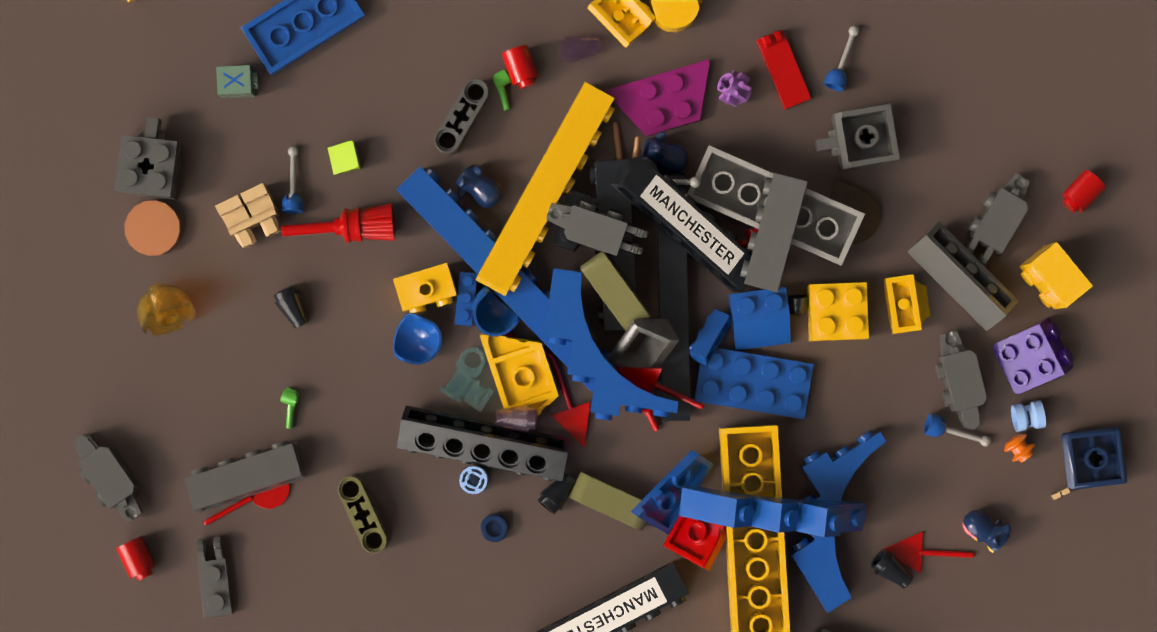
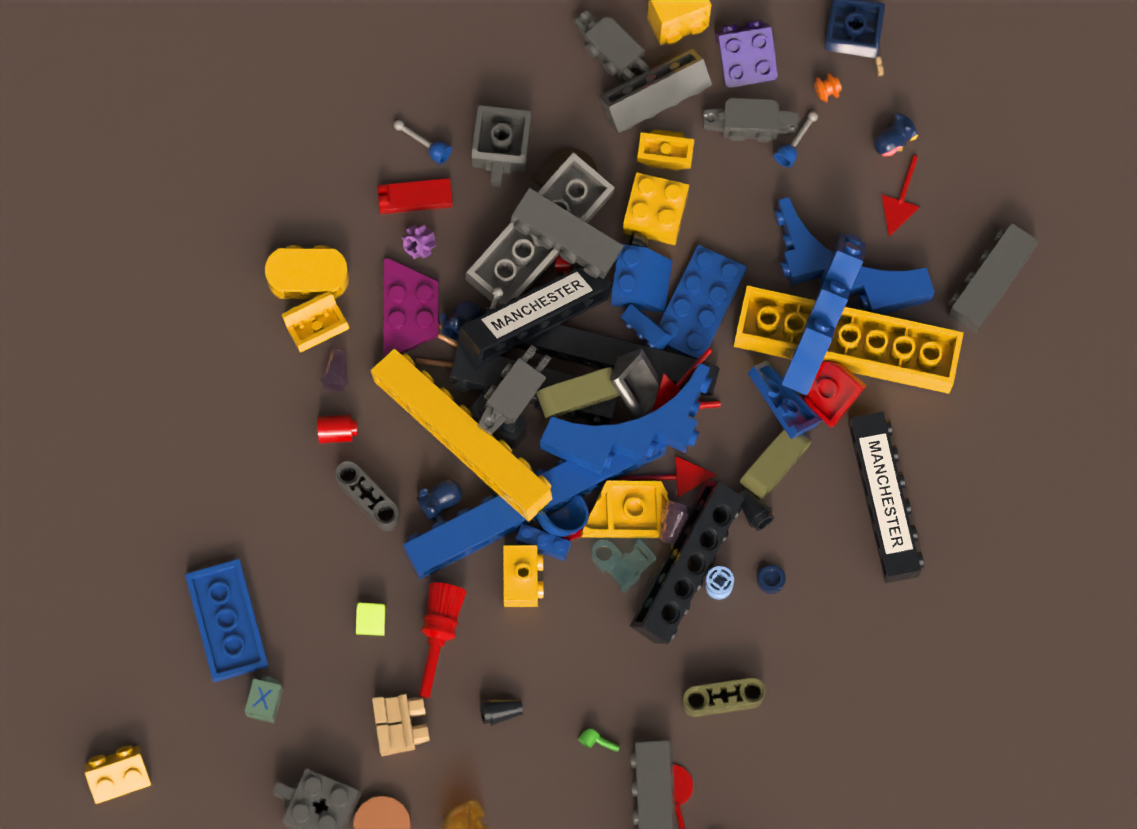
camera: 75 degrees left, 15 degrees down
(292, 202) = (398, 680): hinge -> none
(416, 339) = (567, 597): blue helmet -> none
(500, 80) = (342, 452): bright green hand -> none
(890, 567) = (907, 229): black cone -> none
(1028, 416) = (800, 72): light blue wheel -> none

